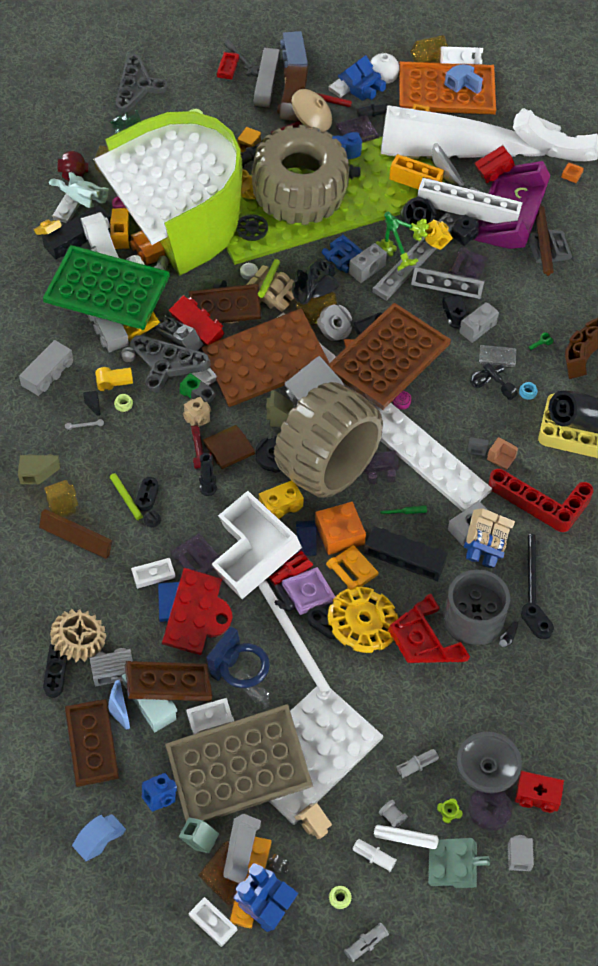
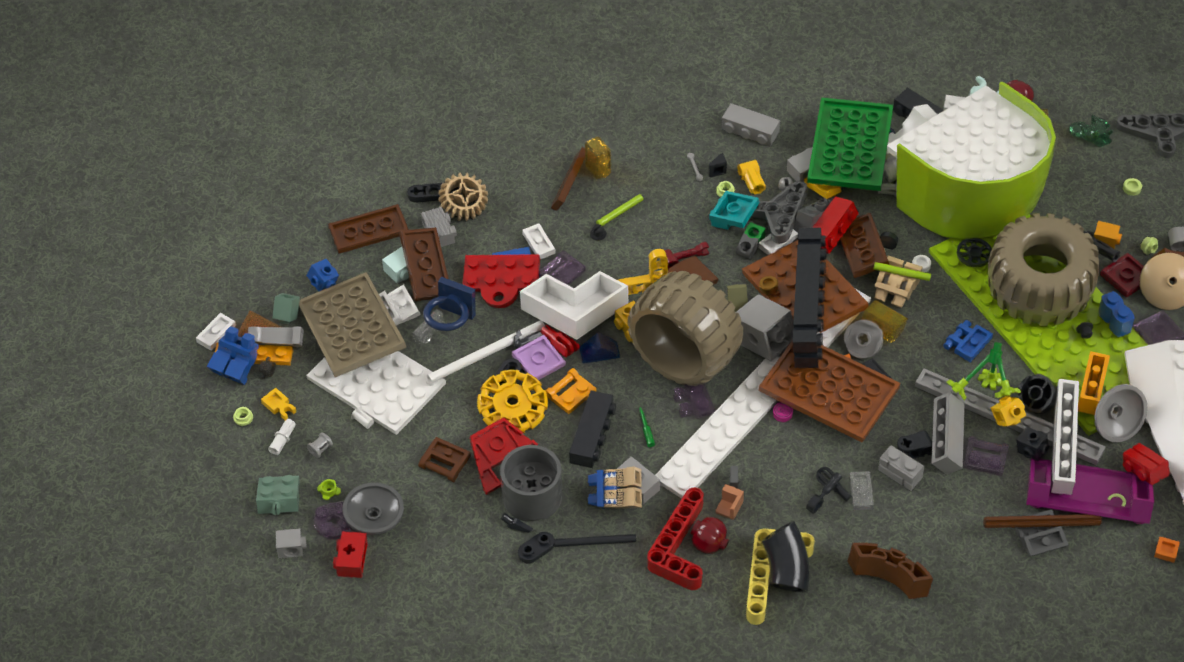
camera: 85 degrees right, 5 degrees down
(37, 468) = (633, 138): olive slope -> none
(47, 227) = (923, 90): yellow plate -> none
(96, 835) = (282, 240): medium blue brick -> none
(117, 705) = (391, 237): light blue slope -> none
(151, 494) = (624, 224): black beam -> none
(159, 396) = (733, 210): none -> teal plate
(197, 412) = (722, 243): tan brick -> none
(207, 479) = (641, 259): black pin -> none
(230, 474) = (653, 275): none -> yellow beam
(262, 380) = (768, 285): none -> pearl gold tile
(265, 117) = (1149, 245): none -> yellowish green plate
(298, 342) = (809, 297): none -> black brick
(314, 820) = (307, 386): tan brick -> none
(315, 281) = (909, 311): black piece -> none
(328, 857) = (278, 402): none -> yellow plate
(340, 528) = (610, 371): orange brick -> none
(360, 768) = (362, 417): none -> white piece
(366, 942) = (204, 438): light grey pin -> none
(367, 263) = (956, 358): light grey brick -> none
(406, 836) = (298, 455): white axle -> none
(417, 763) = (371, 459): light grey axle -> none
(419, 687) = (447, 454): none -> reddish brown plate
(528, 386) = (821, 518): medium azure plate -> none
(536, 472) = (709, 535): none -> dark red plant
(543, 339) = (896, 533): green hand -> none

